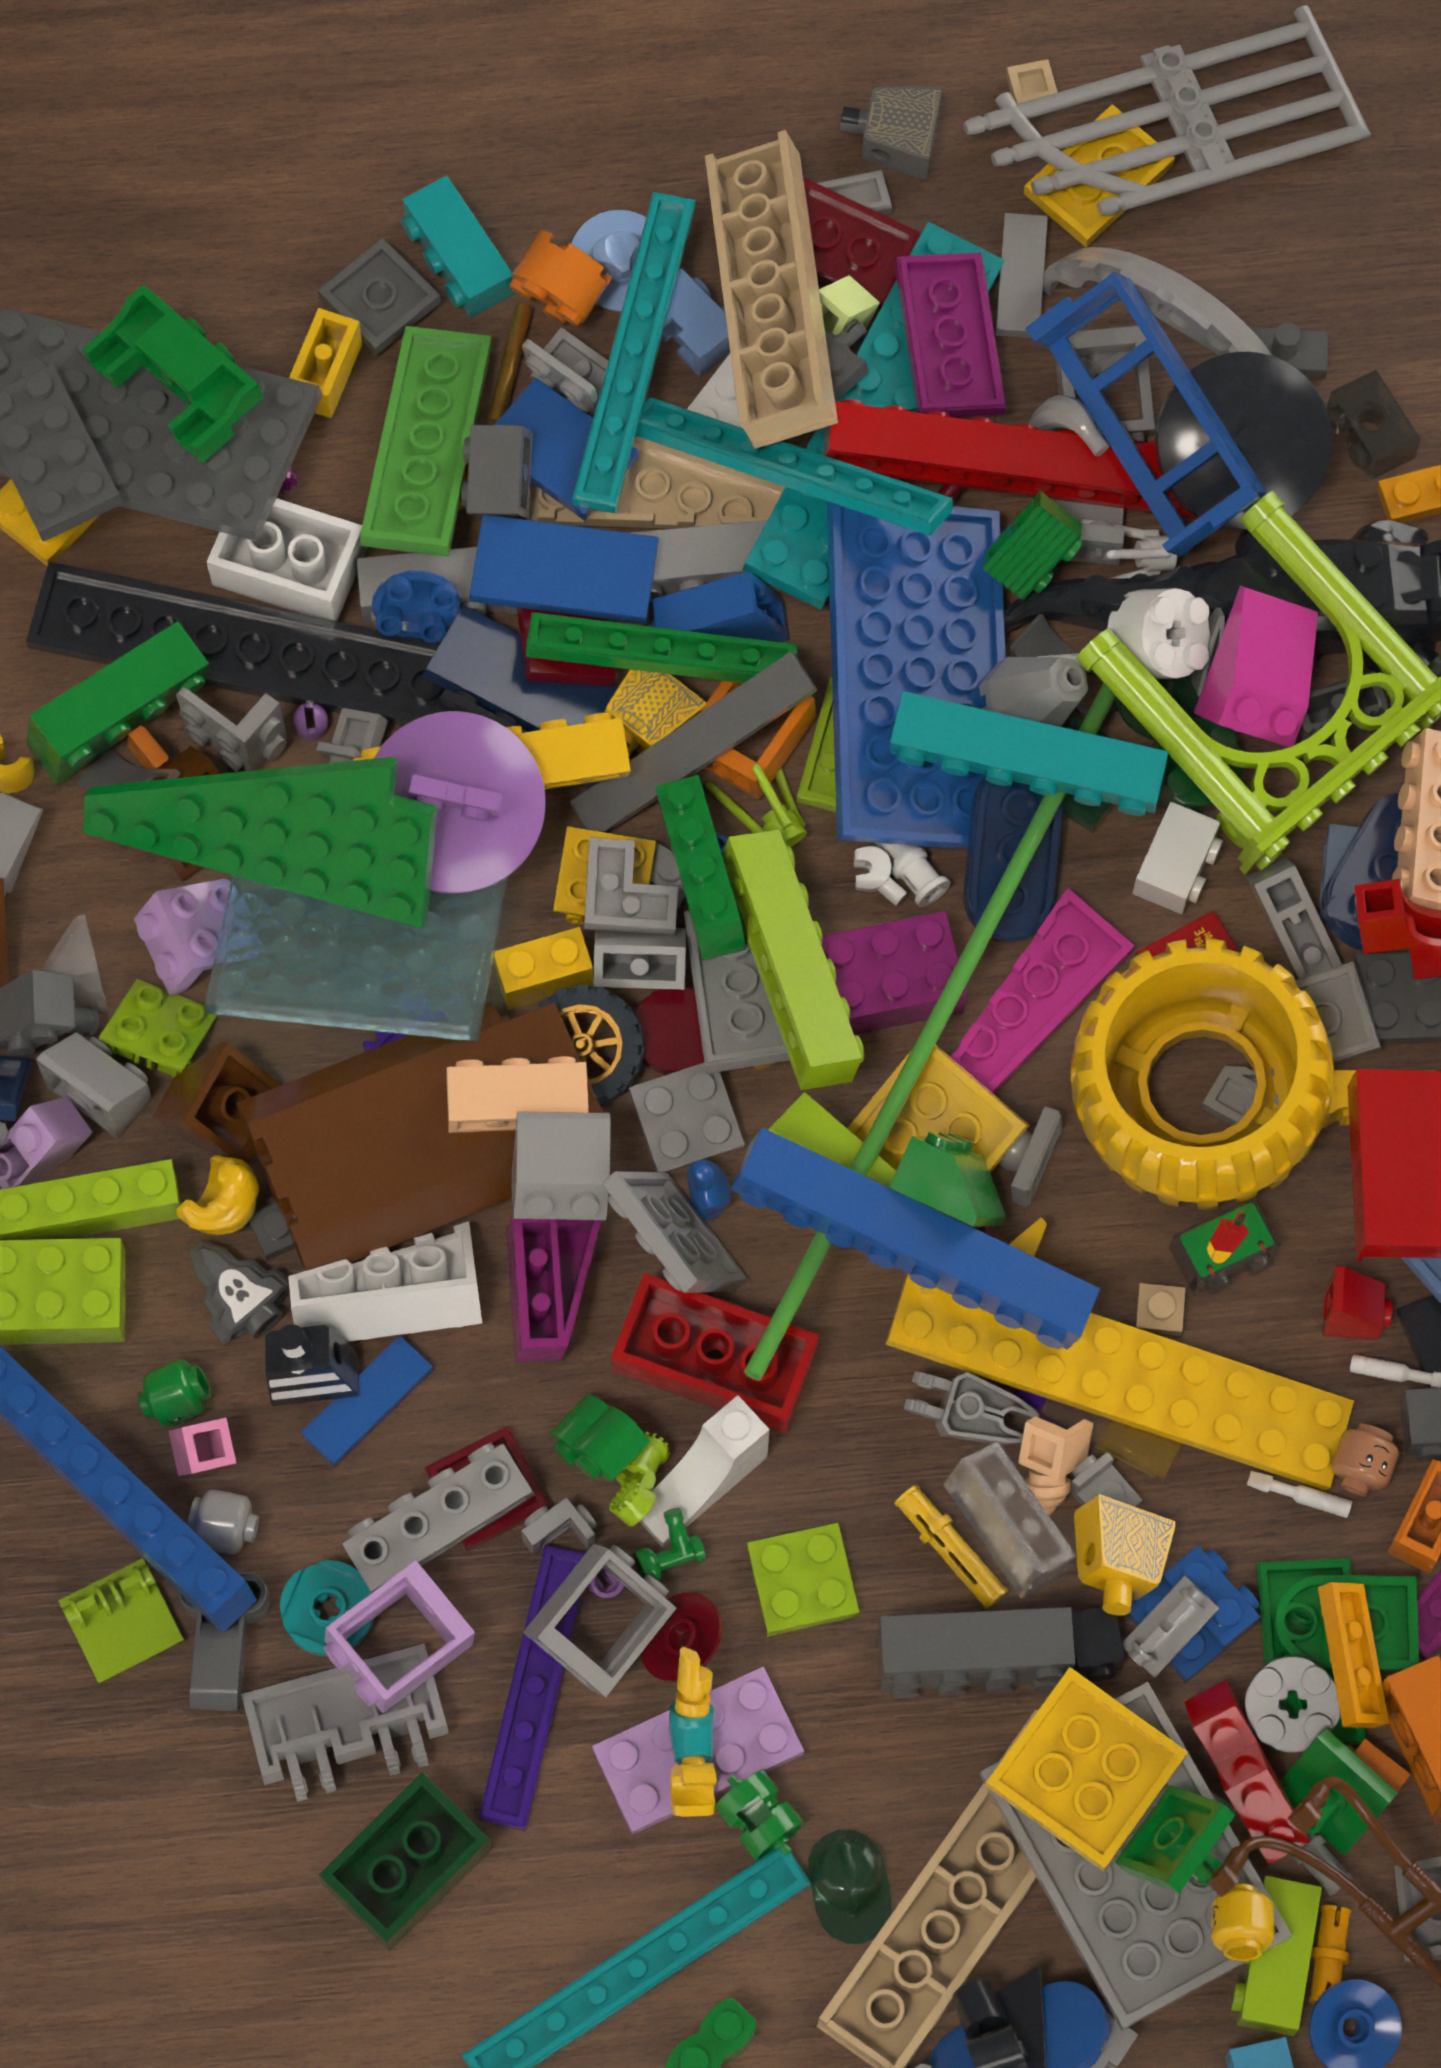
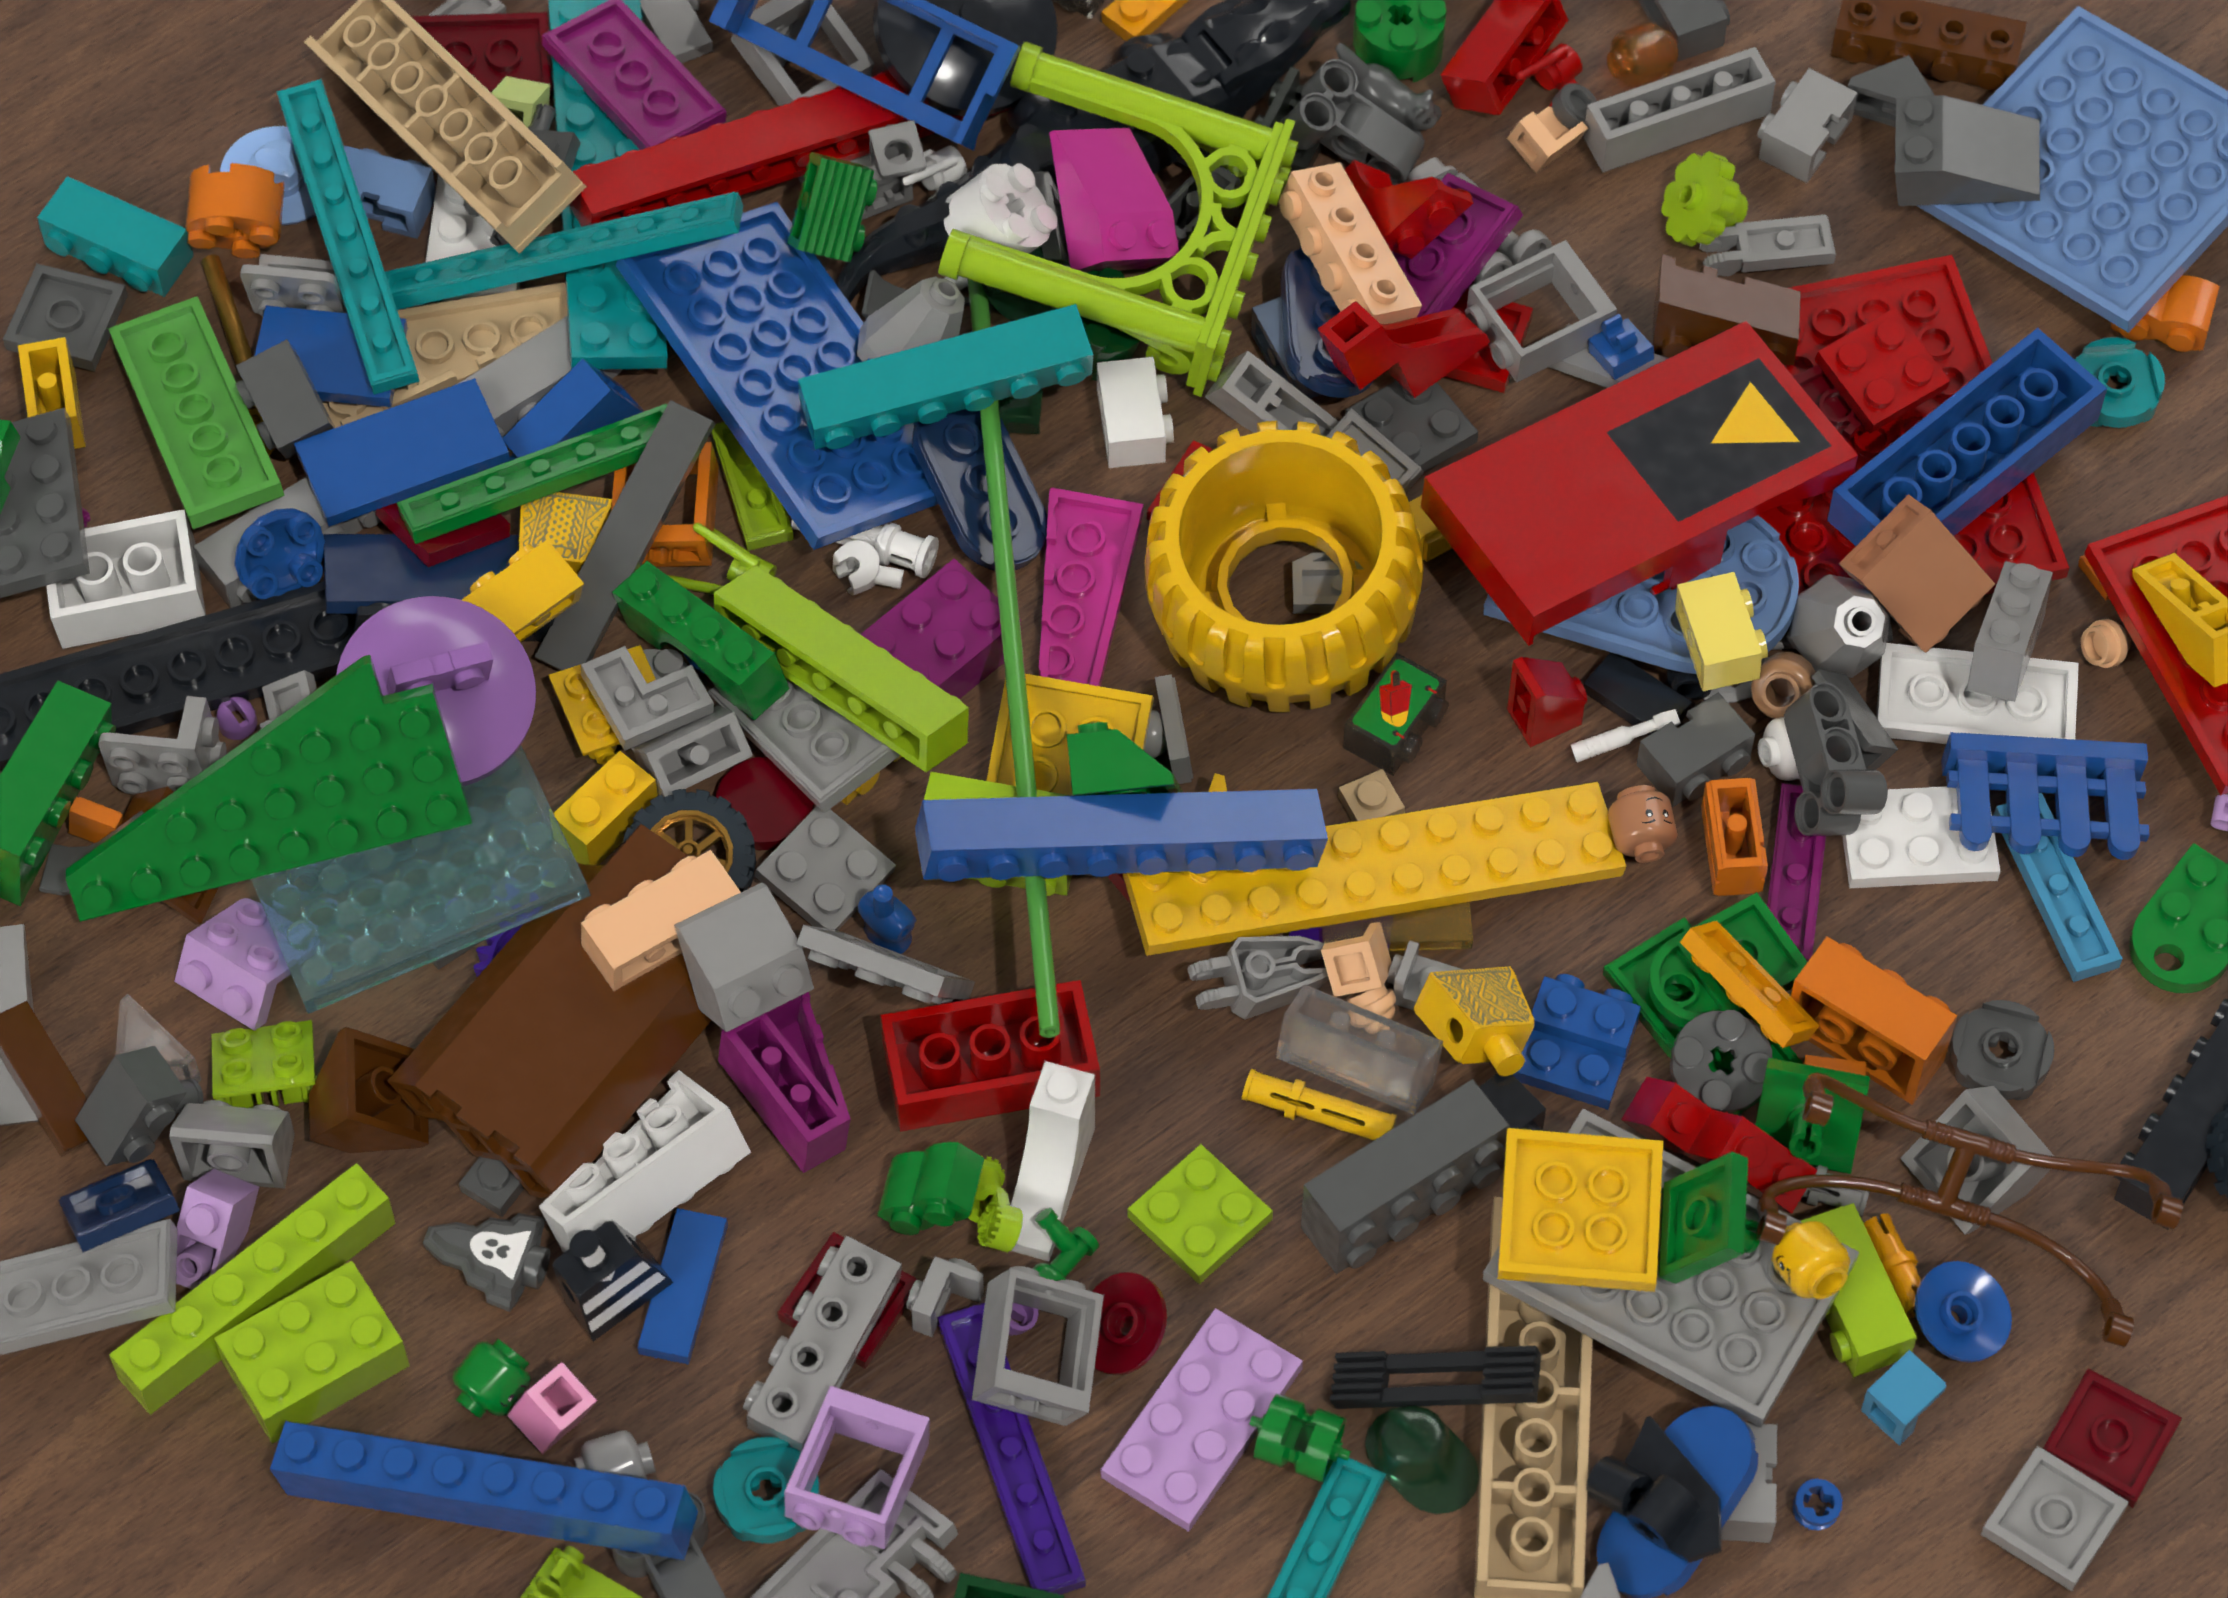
camera: 30 degrees left, 10 degrees down
(227, 1199) = (429, 1174): yellow hair -> none
(692, 1740) = (1195, 1400): yellow piece -> none
(947, 1868) = (1508, 1371): none -> black container
(1071, 414) = (793, 81): light grey piece -> none
(1124, 510) = (892, 142): none -> light grey bracket
(1169, 1626) = (1567, 1057): light grey hinge -> none
(1302, 1494) = (1605, 888): white piece -> none

